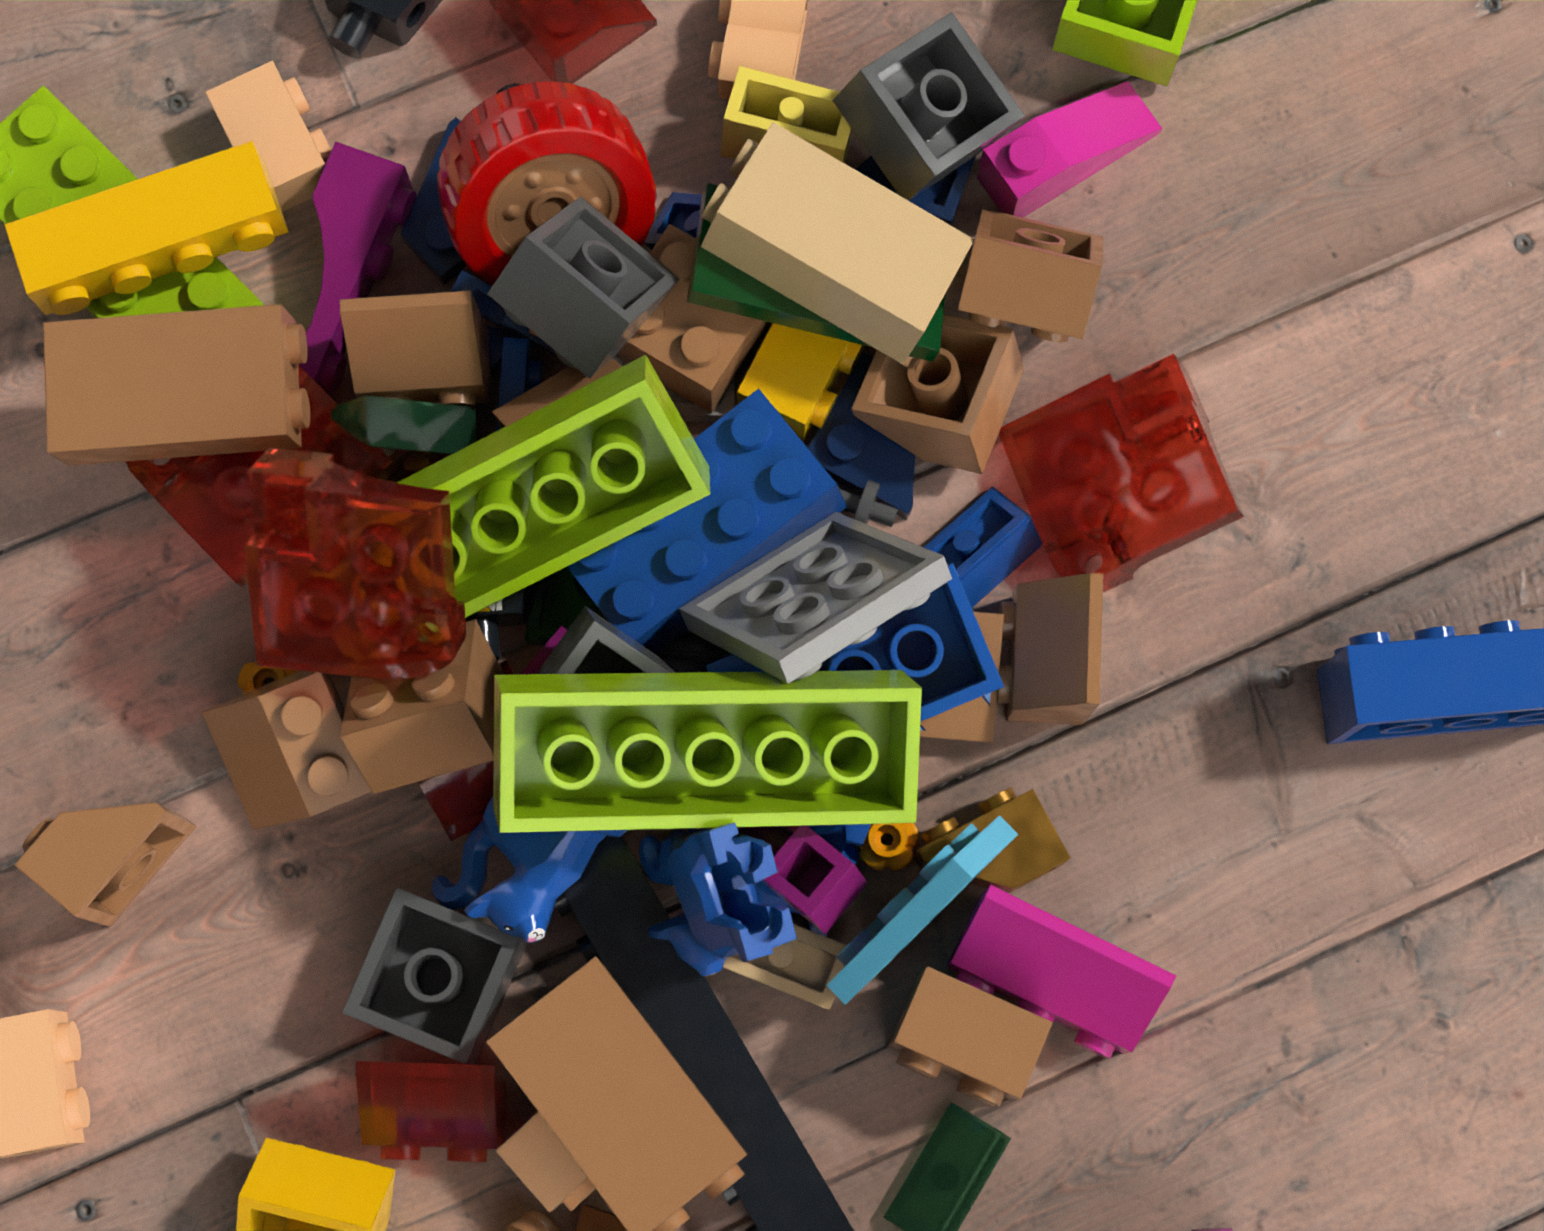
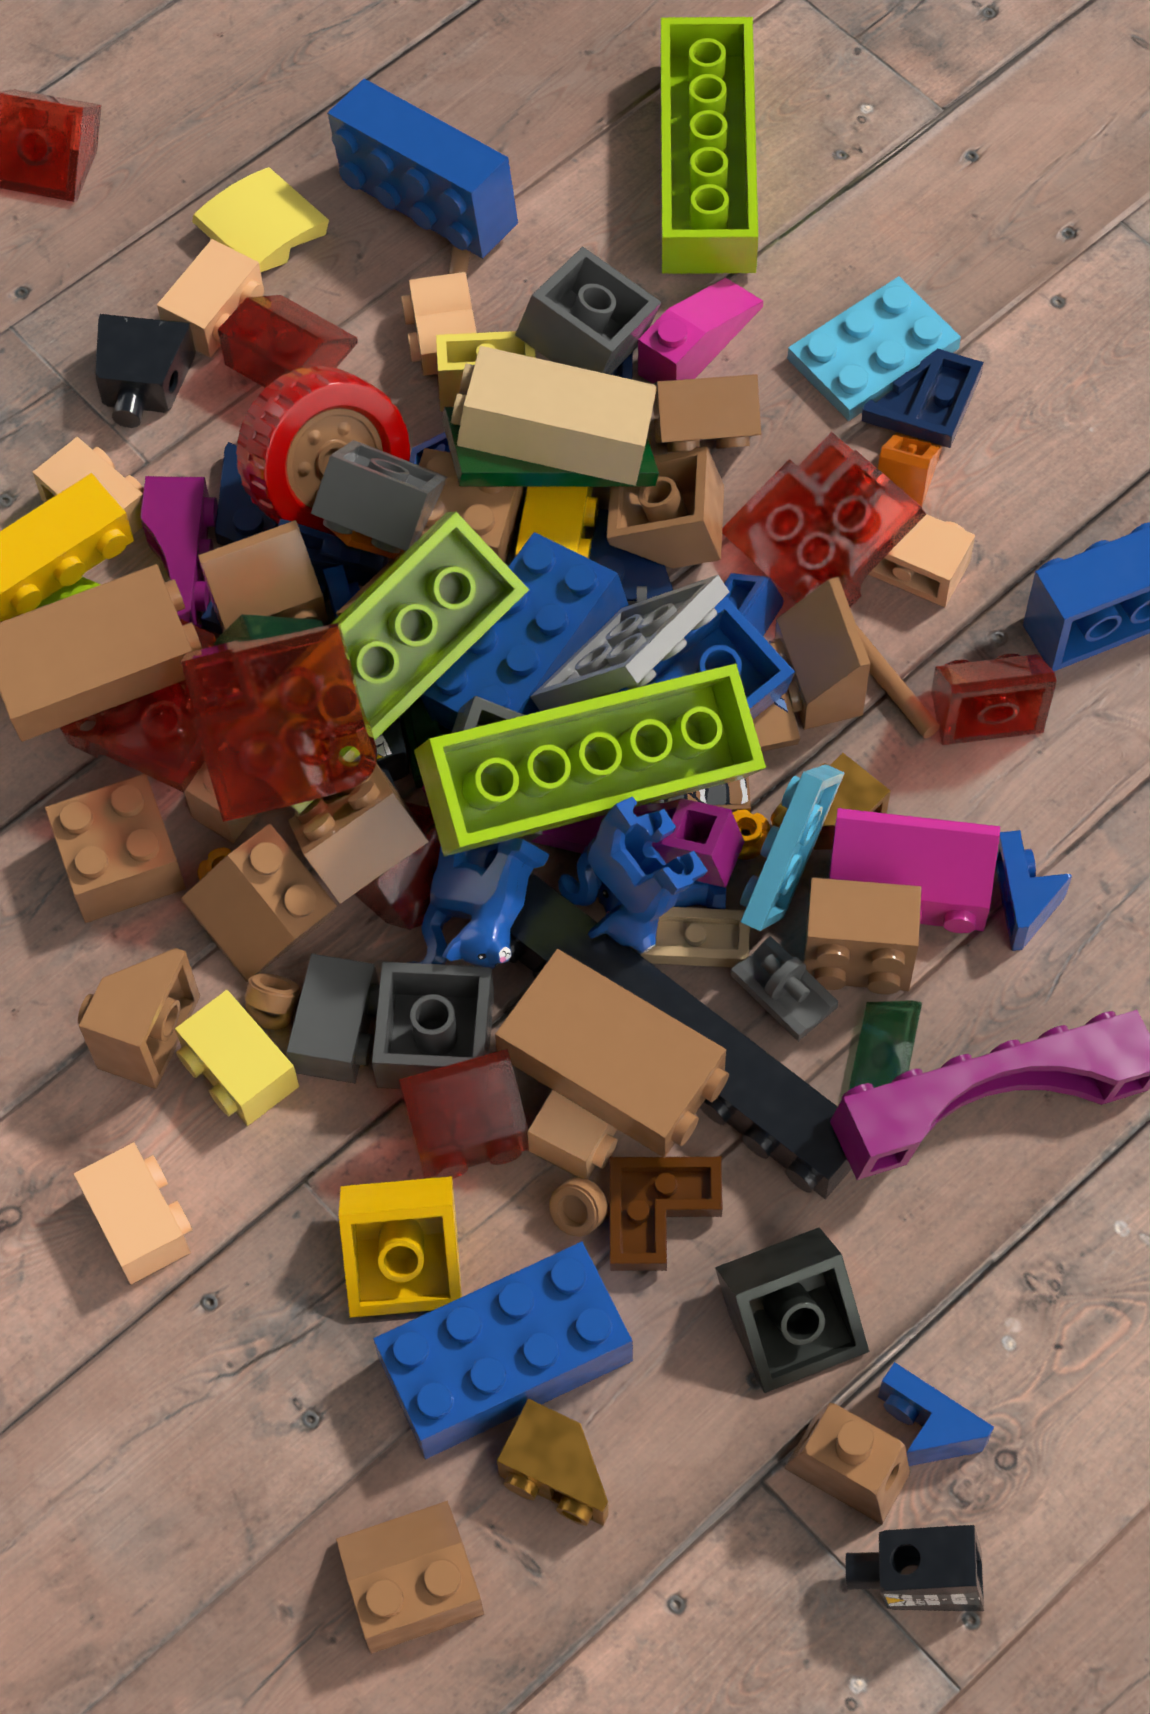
camera: 15 degrees left, 15 degrees down
(149, 617) = (115, 848): none -> medium nougat brick
(202, 931) = (236, 1059): none -> light yellow brick
(271, 866) = (272, 995): none -> medium nougat tile
(329, 920) = (334, 1019): none -> dark grey brick
(857, 1064) = (784, 988): none -> dark grey hips
(1130, 694) = (899, 691): none -> medium nougat bar
(1178, 1047) = (1025, 898): none -> blue slope
(1239, 556) = (928, 560): none -> light nougat brick
(1241, 765) = (992, 698): none -> clear red slope
(1255, 416) = (910, 464): none -> orange slope
(1273, 237) = (871, 346): none -> medium azure plate
(1313, 333) = (929, 399): none -> dark blue wing

